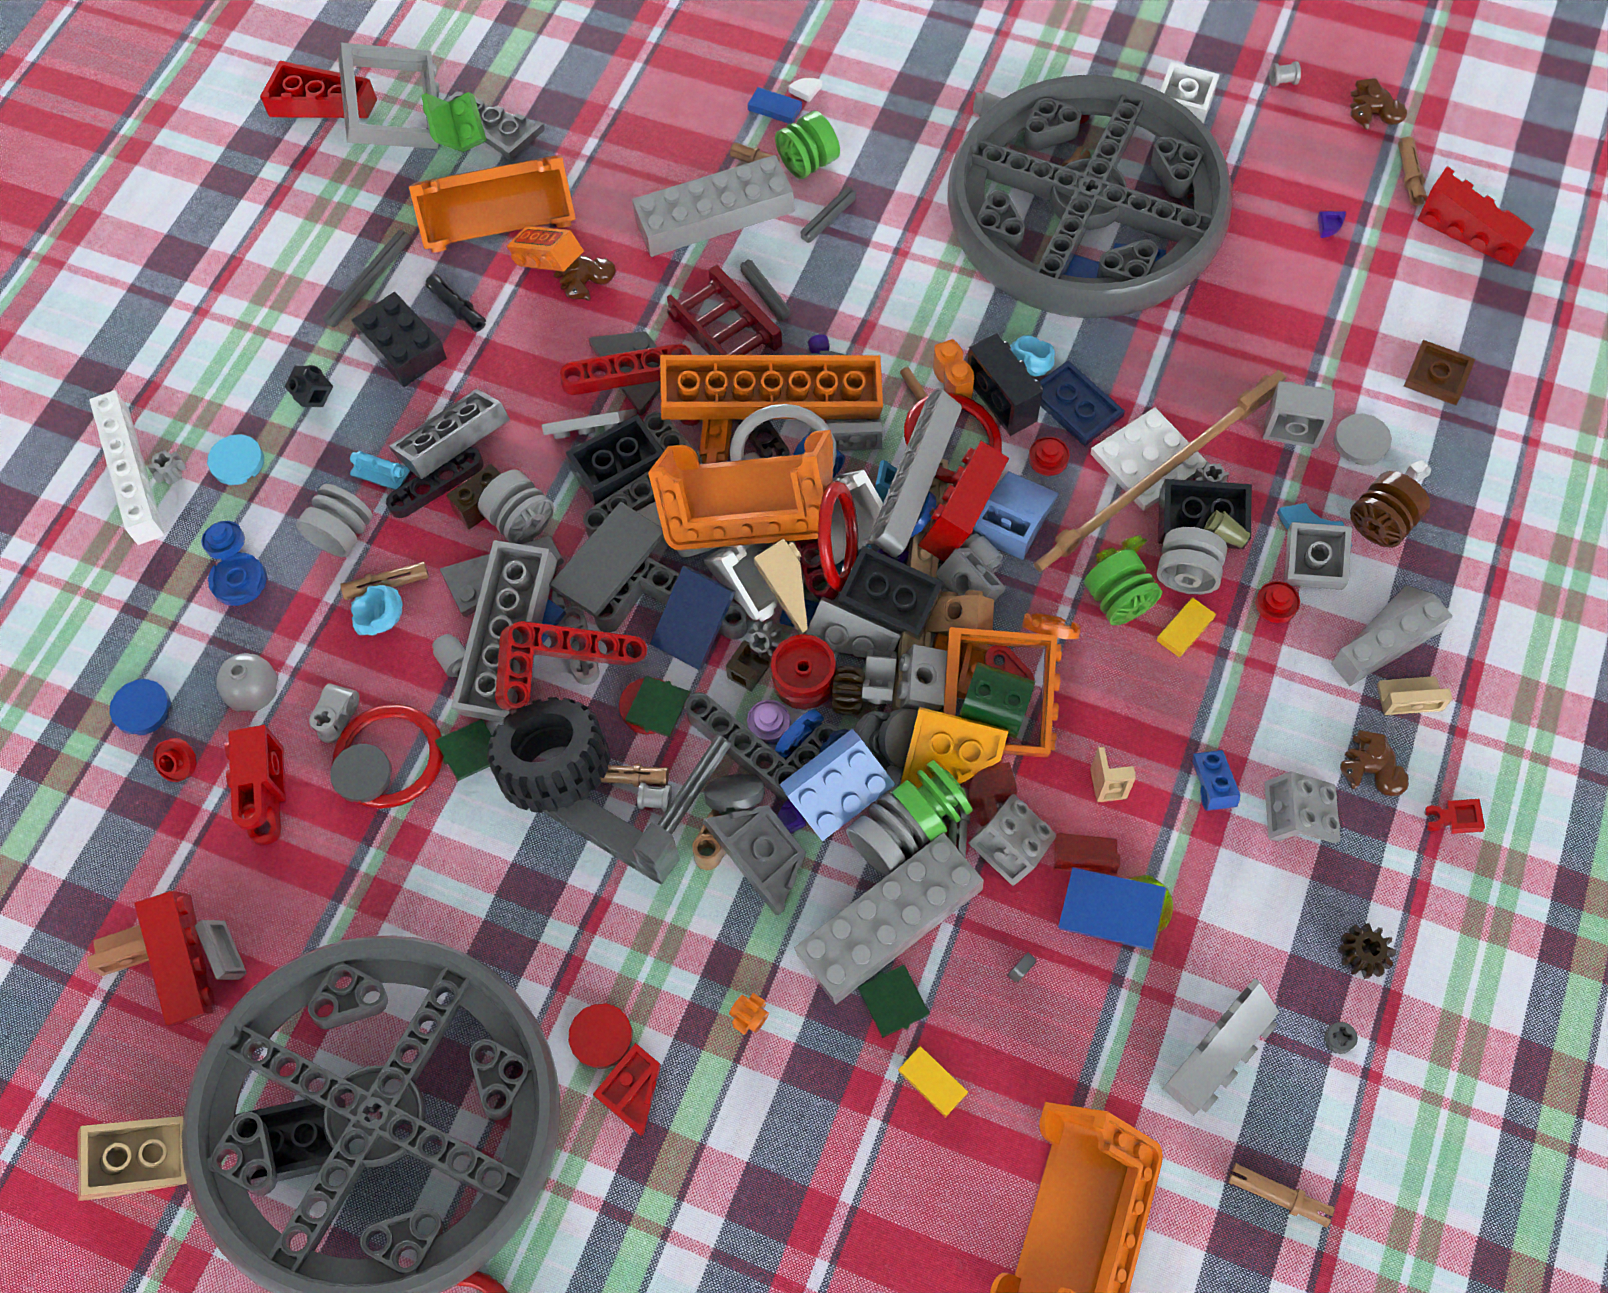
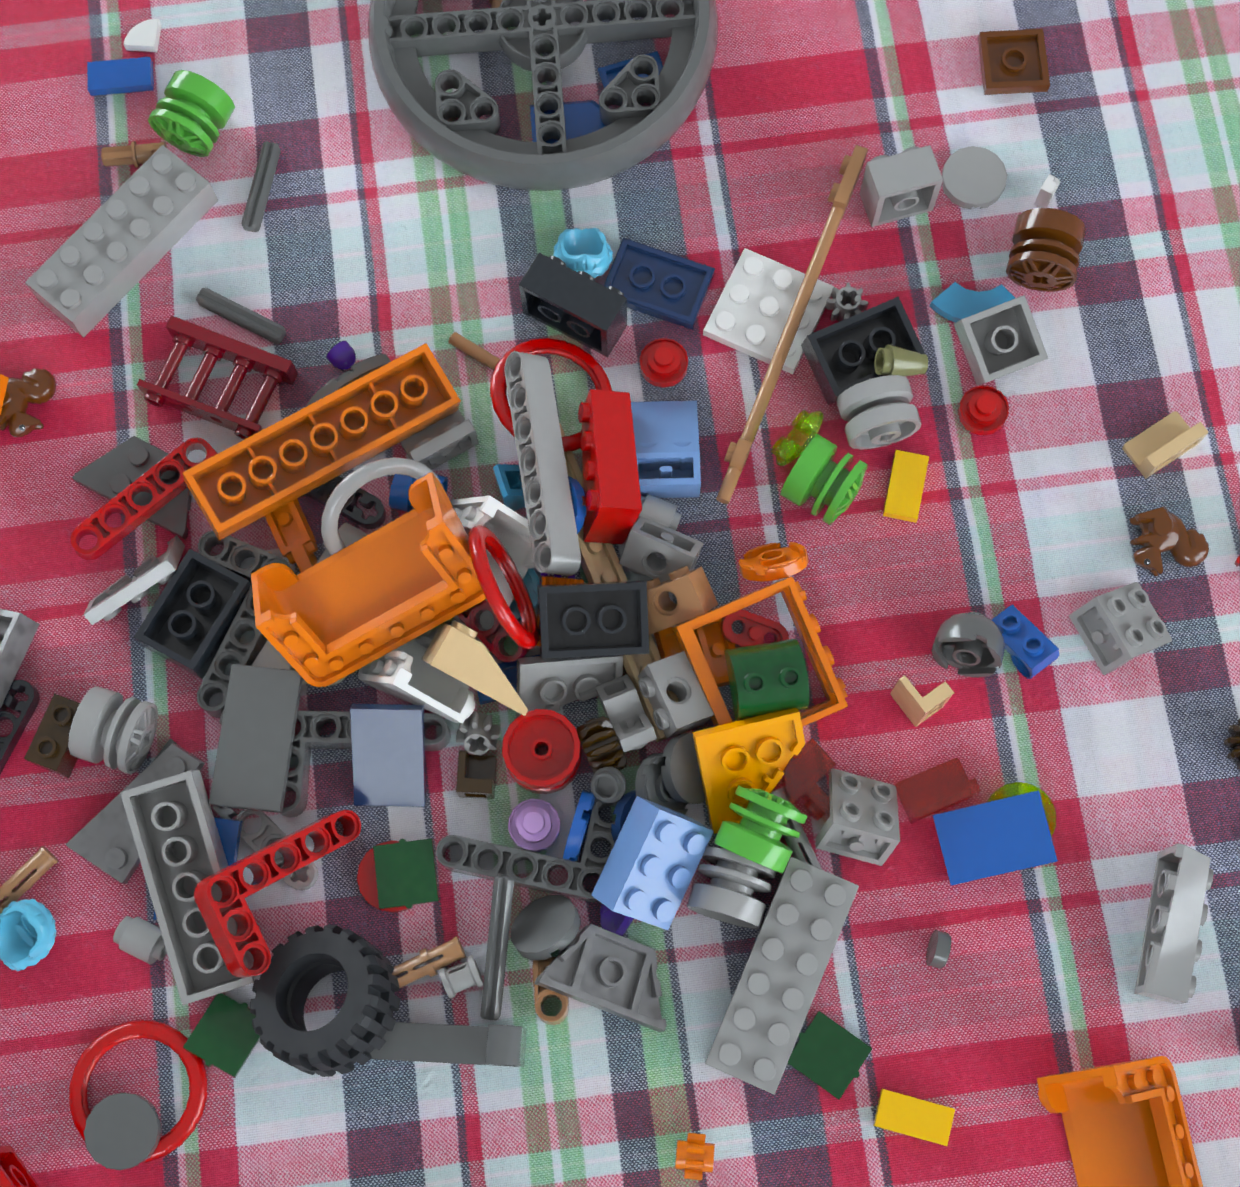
camera: 30 degrees left, 10 degrees up
(333, 710) = (46, 1071): light grey piece -> none
(837, 714) = (608, 784): none -> dark grey plate
(952, 369) = (507, 314): orange brick -> none
(1170, 758) = (970, 644): none -> dark grey cylinder
(1400, 627) = (1113, 379): light grey wedge -> none

